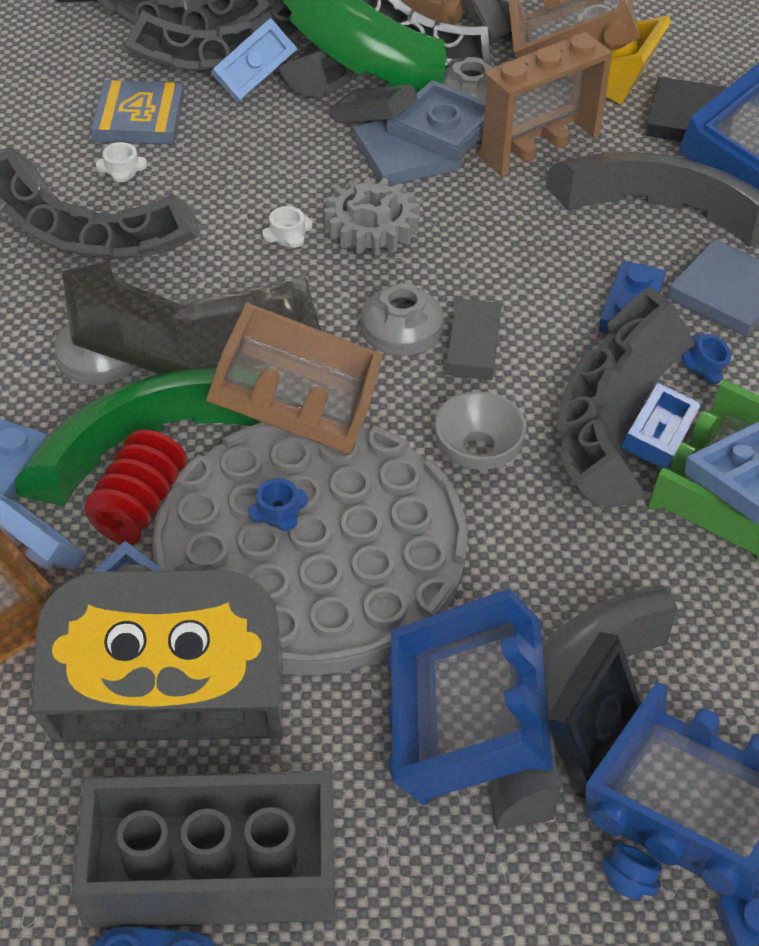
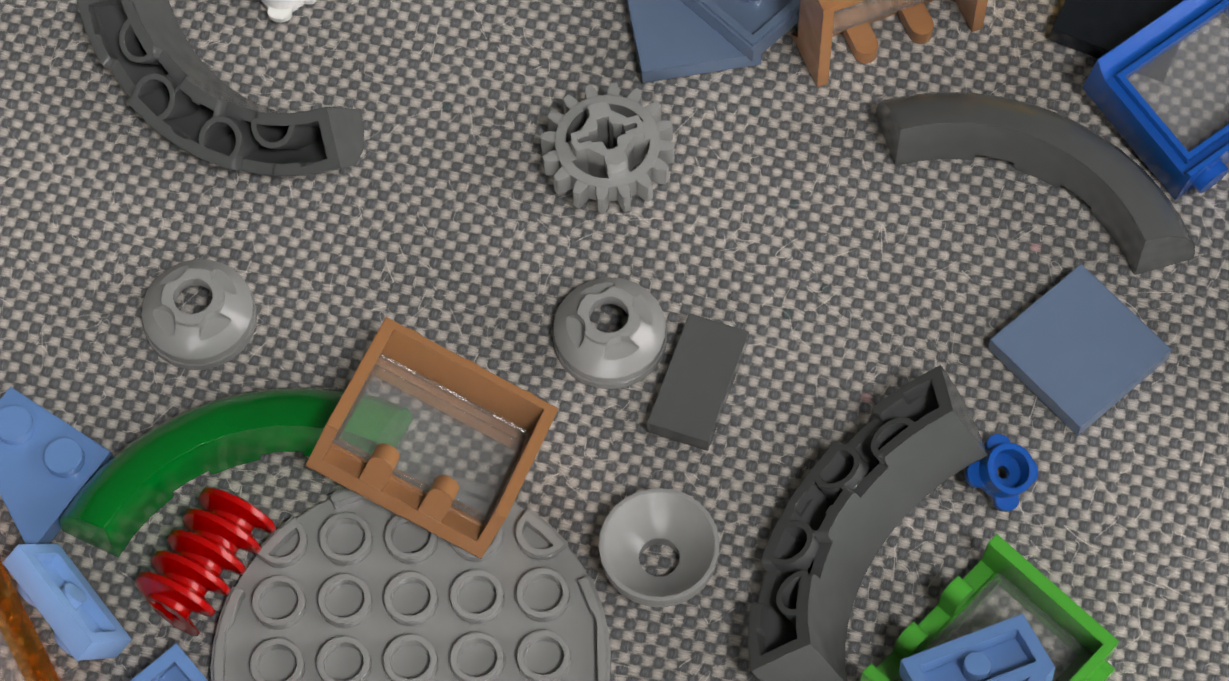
camera: 15 degrees right, 15 degrees up
(162, 333) = (307, 317): clear smoke windscreen -> none
(278, 493) = (370, 603): blue plate -> none
(287, 227) = (489, 130): white plate -> none
(629, 283) = (940, 335): blue plate -> none
(661, 426) = (902, 579): plate -> none

